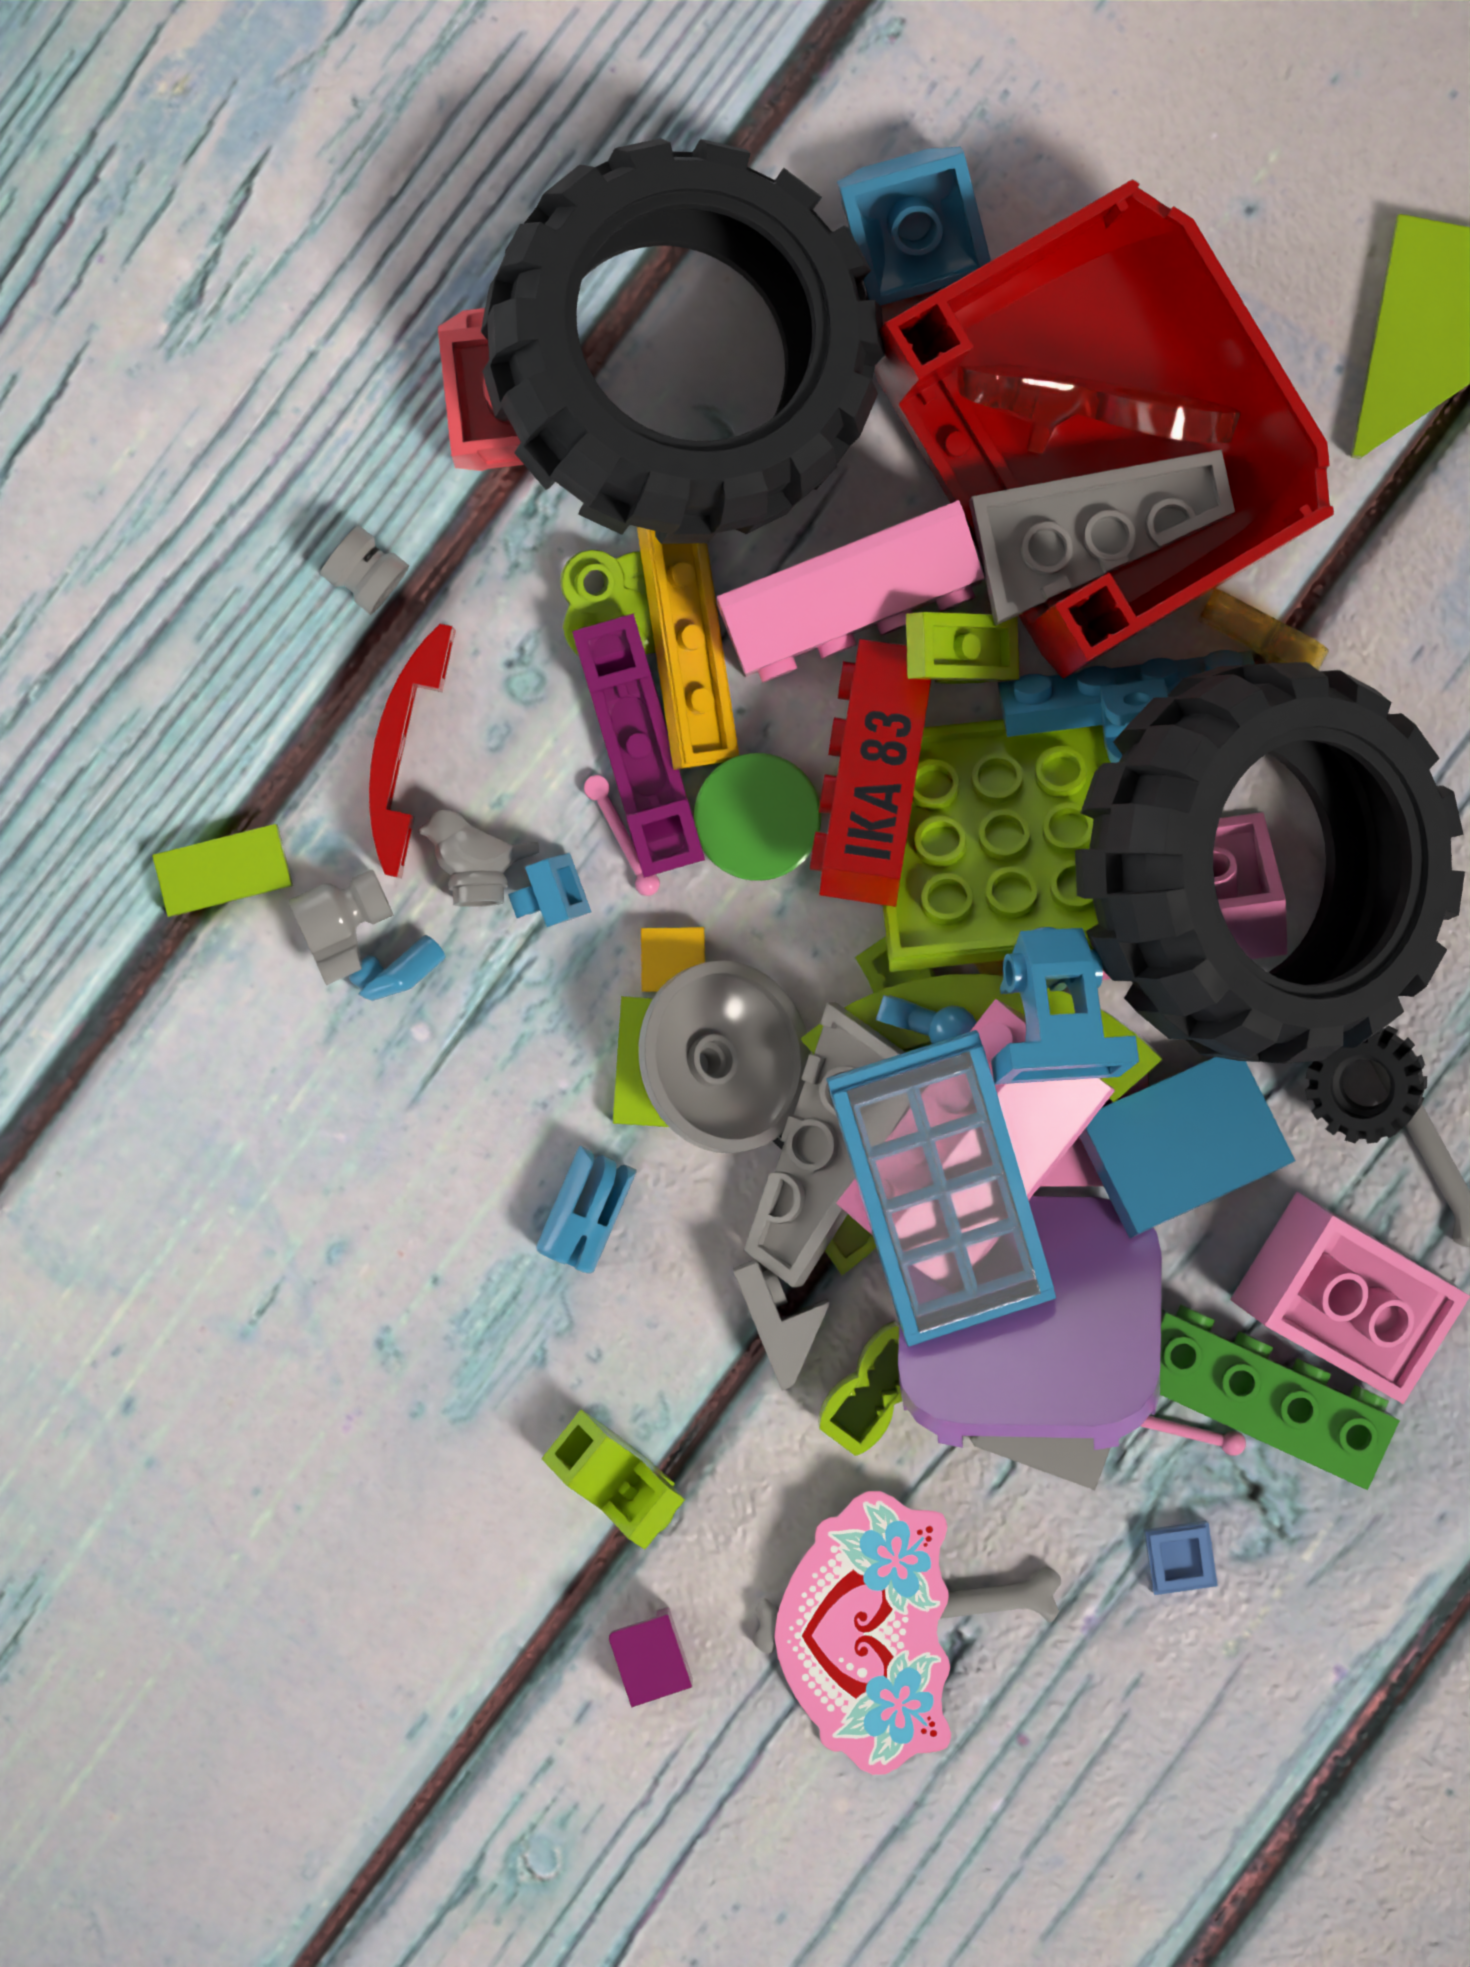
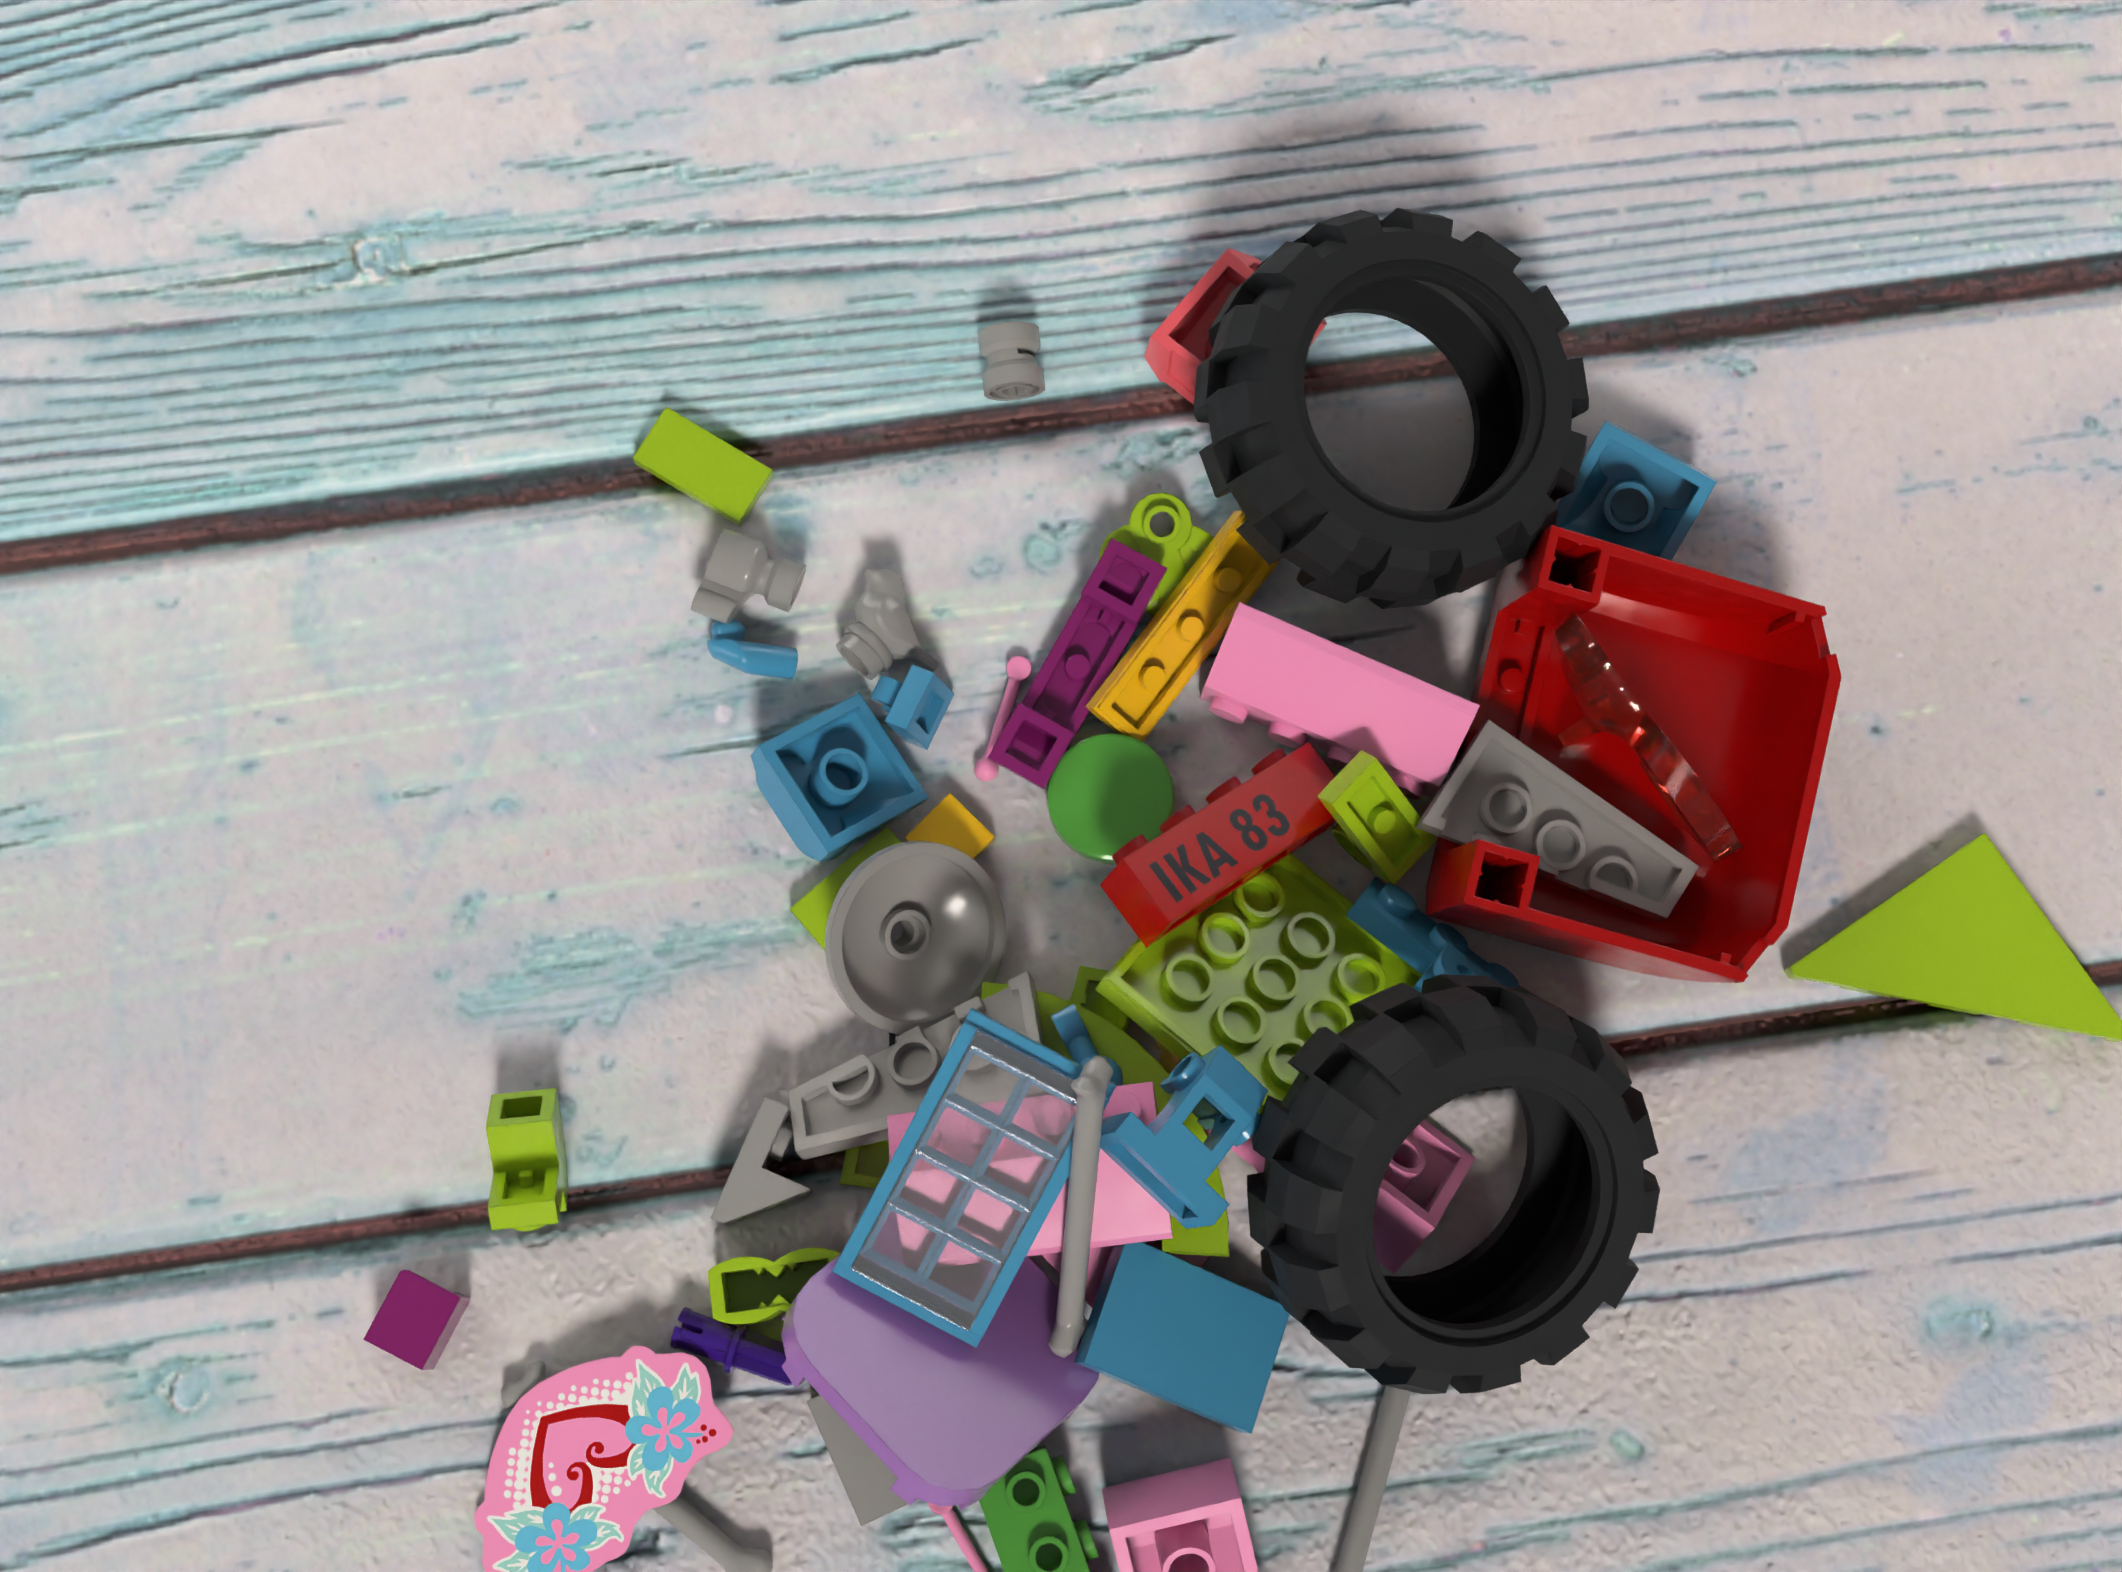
camera: 35 degrees right, 10 degrees down
(423, 670) = (981, 465): red slope -> none
(553, 1000) = (835, 779): none -> dark azure slope
(585, 1210) = (685, 958): dark azure arm -> none
(882, 1460) = (730, 1345): none -> dark purple axle
(969, 1058) = (1091, 1094): none -> light grey piece
(1260, 631) = (1596, 1007): clear yellow piece -> none
(1368, 1121) = (1320, 1434): black tyre -> none

